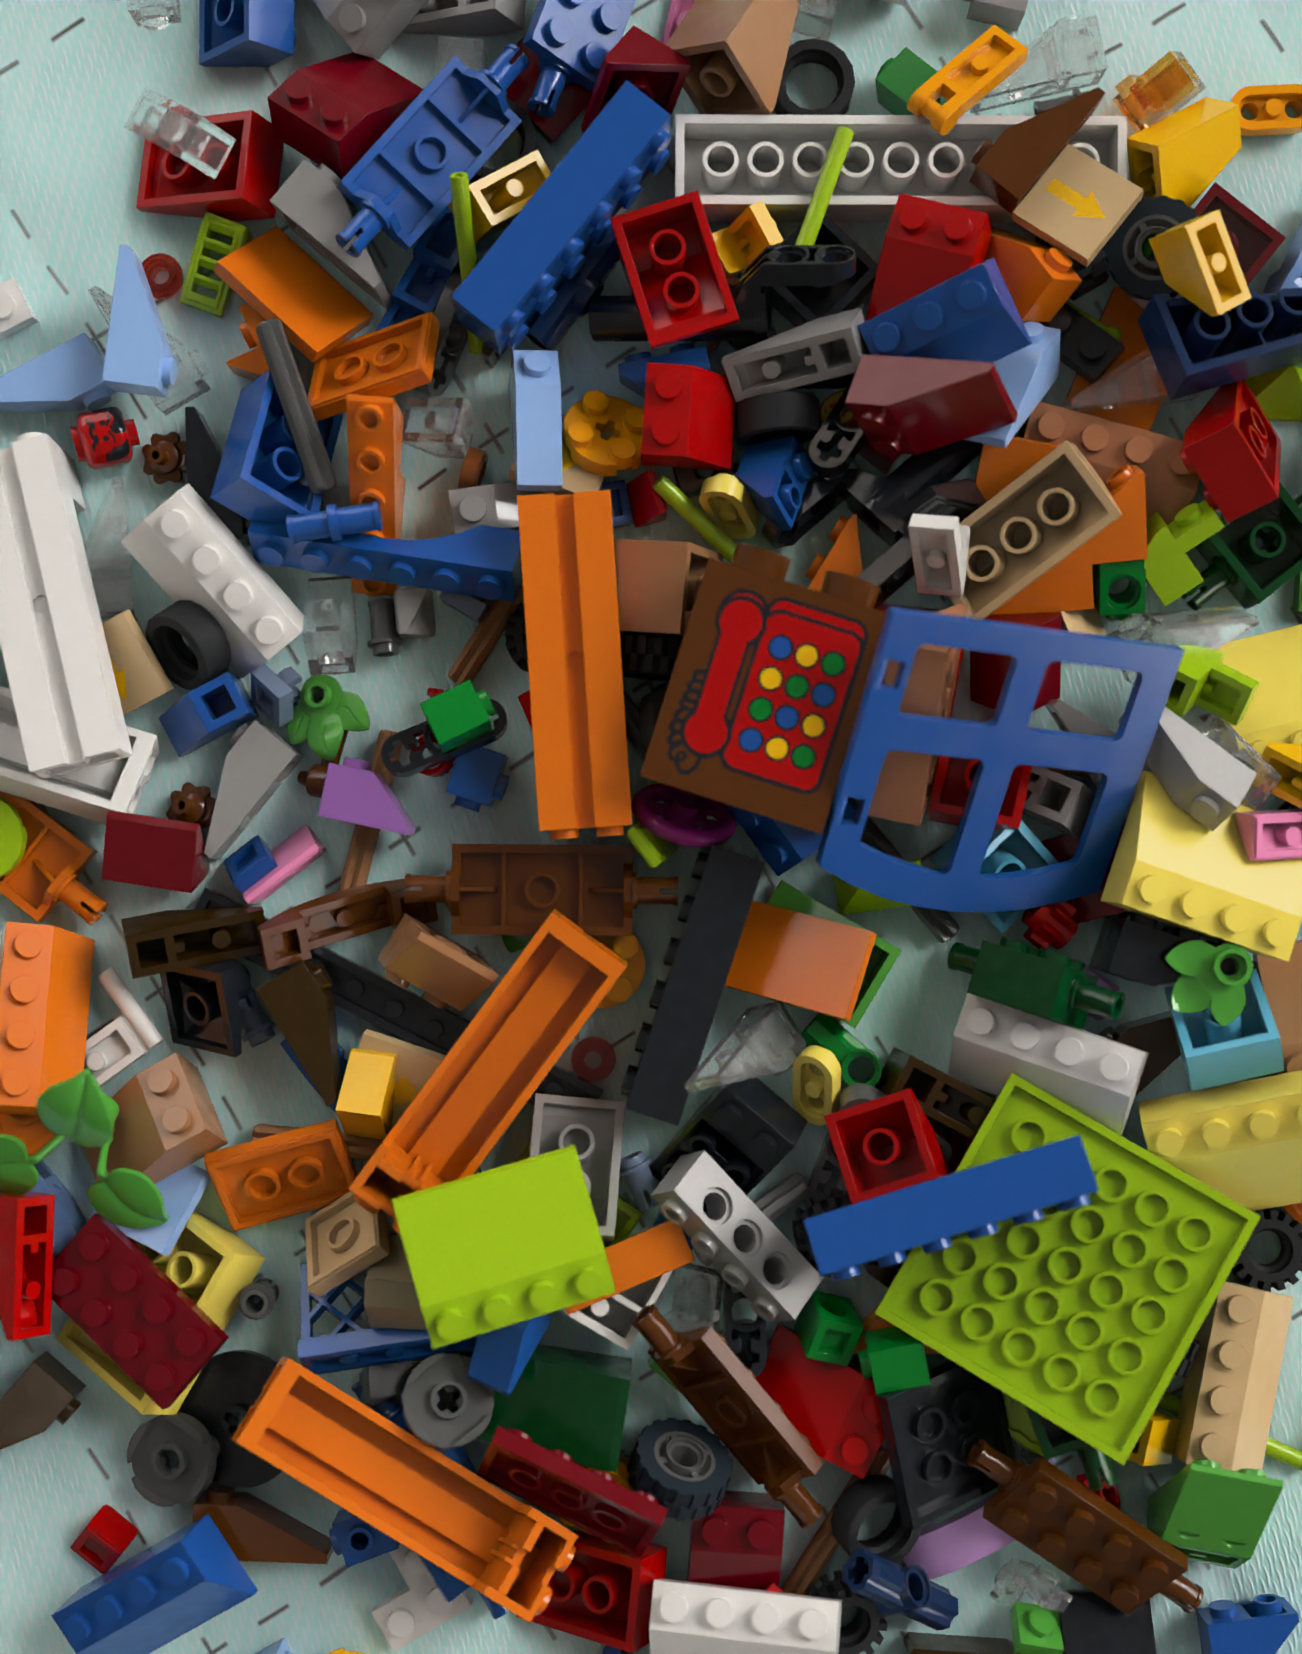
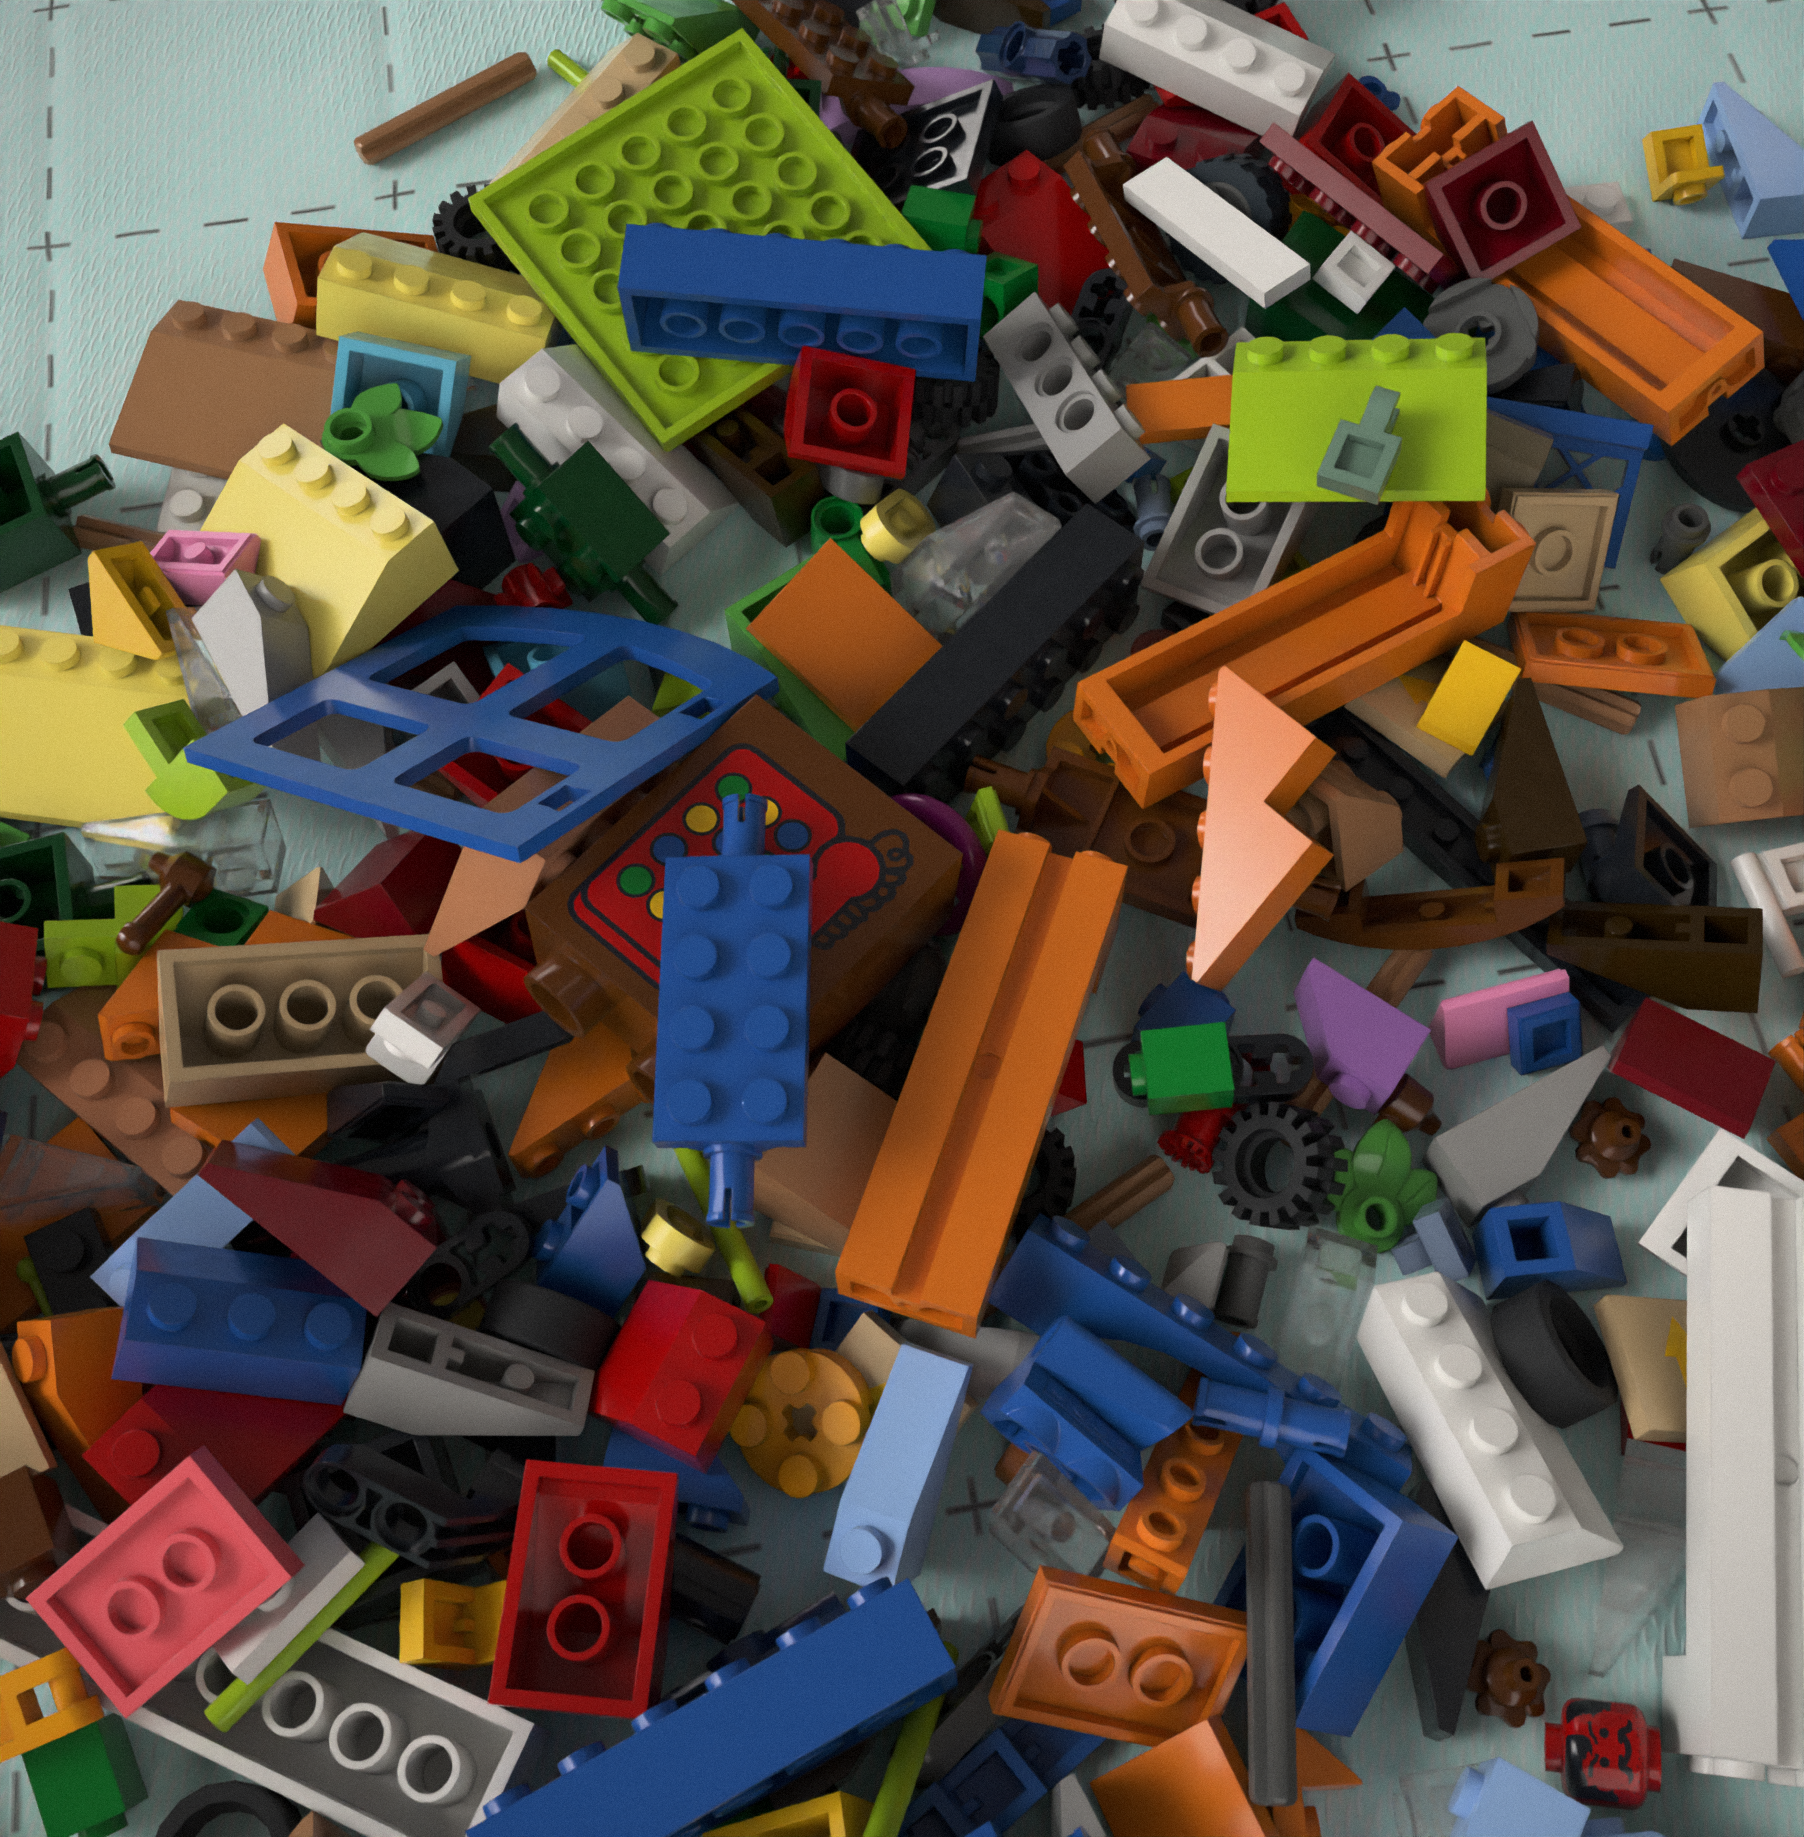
camera: 155 degrees left, 25 degrees down
(397, 684) = (1312, 1172): none -> black tyre
(439, 477) = (1085, 1412): none -> blue piece
(460, 1511) = (1500, 205): none -> dark red slope
(468, 889) = (1252, 852): none -> orange slope
(485, 1193) = (1364, 453): none -> sand green plate
(557, 1420) = (1354, 272): none -> white plate
(676, 1423) = (1217, 232): none -> white tile
(731, 604) = (734, 1007): none -> blue plate
(841, 200) = (278, 1620): none -> white plate
(902, 173) = (165, 1581): none -> coral plate
(1157, 599) = (182, 881): none -> reddish brown piece

